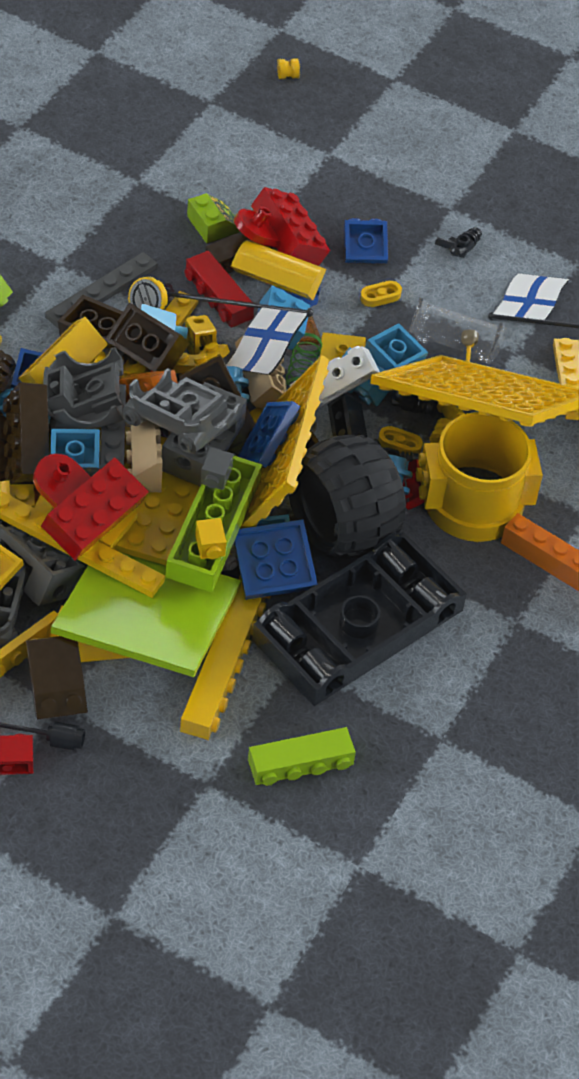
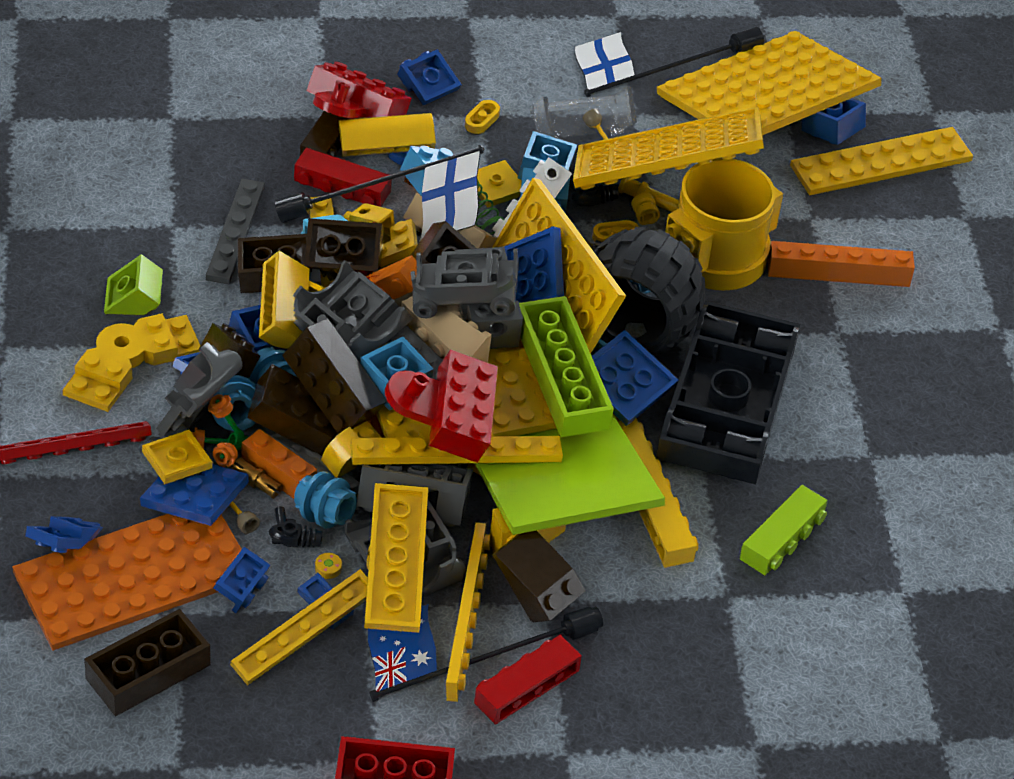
camera: 35 degrees left, 5 degrees down
(148, 292) = (288, 213): tile -> none
(210, 538) = (589, 377): yellow brick -> none
(211, 217) = (274, 121): lime slope -> none
(216, 468) = (539, 316): dark grey brick -> none
(462, 244) = (509, 43): black piece -> none

